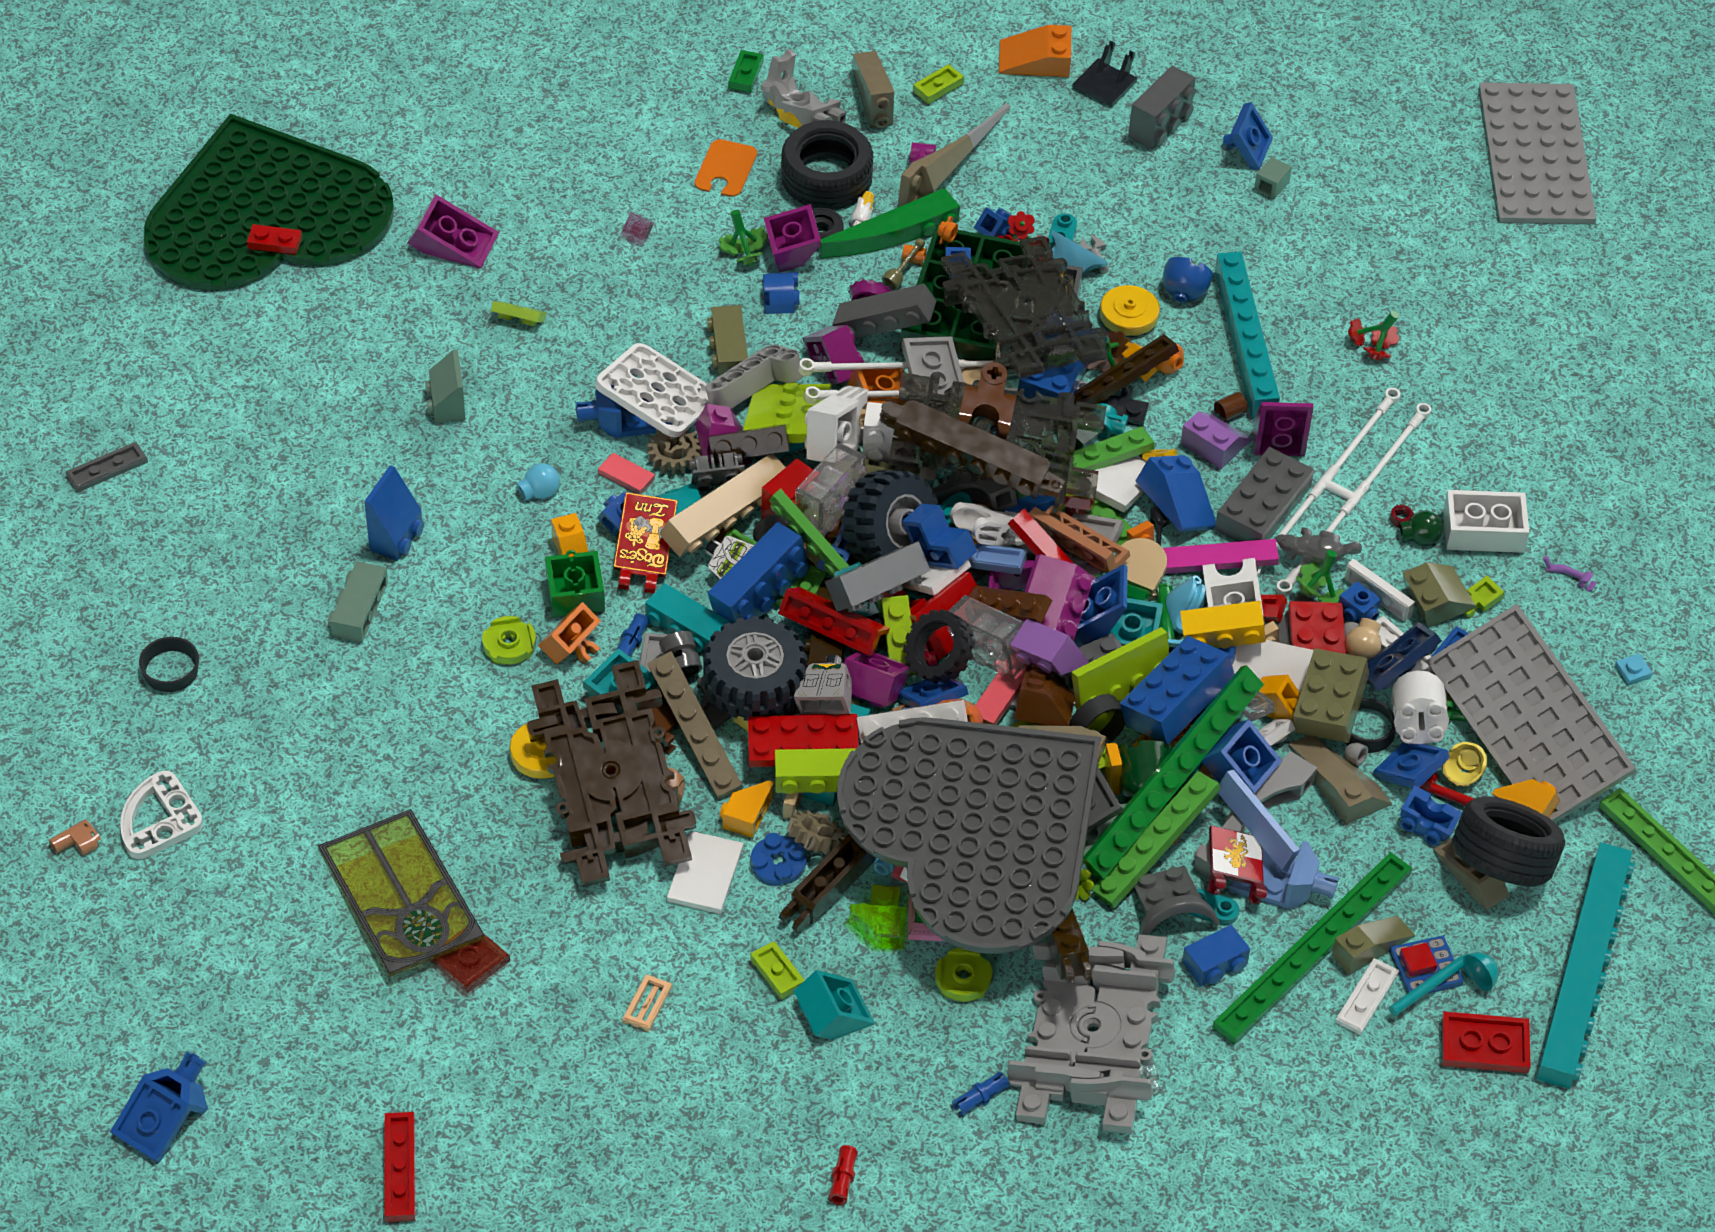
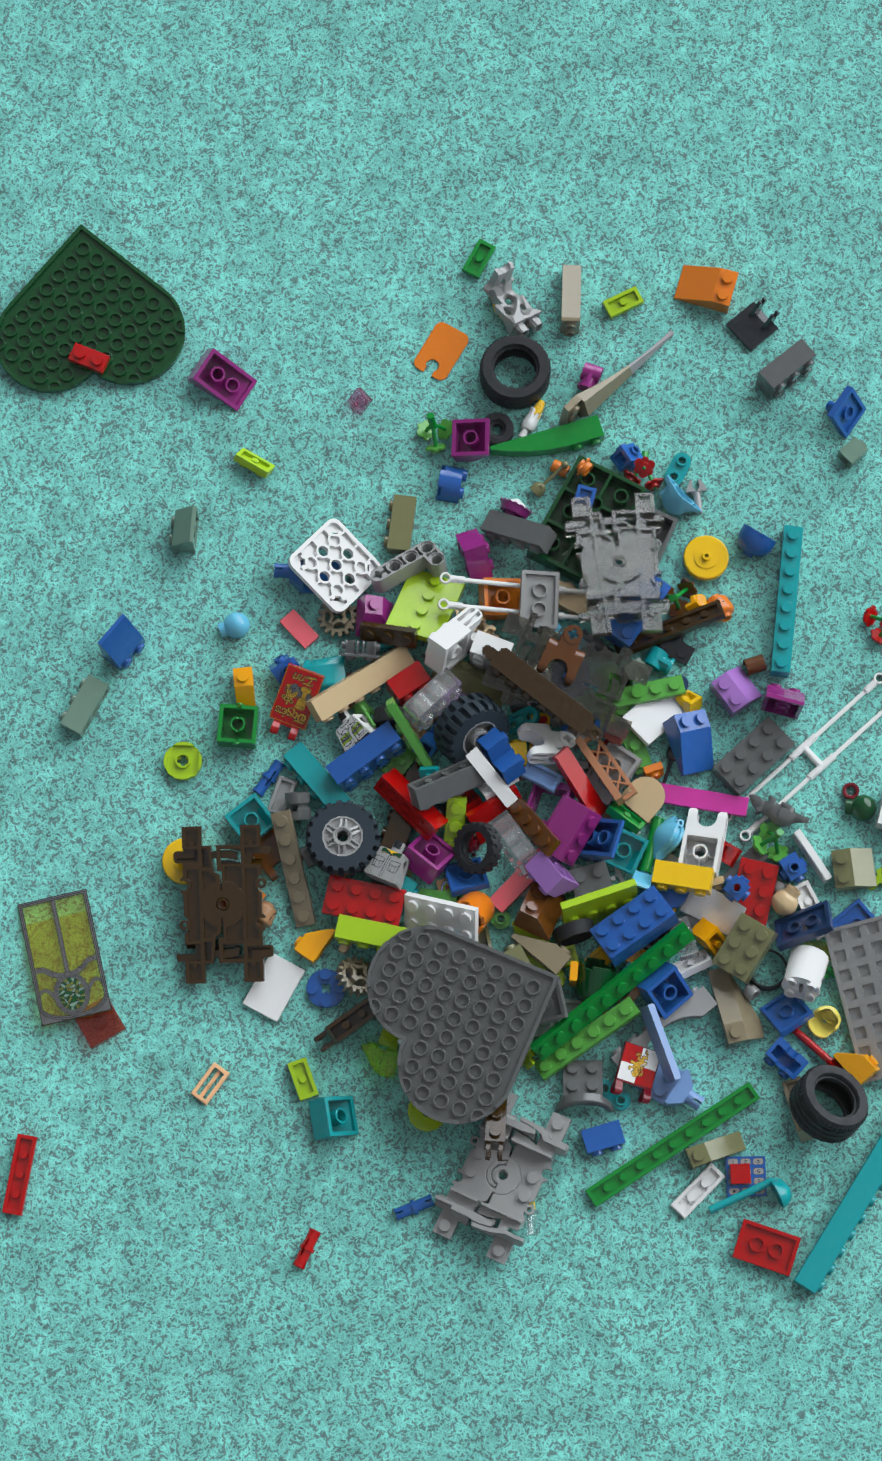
camera: 15 degrees right, 25 degrees up
(571, 635) = (225, 769): orange brick -> none
(934, 560) = (491, 777): none -> white sticker
(1296, 628) = (733, 895): none -> blue brick

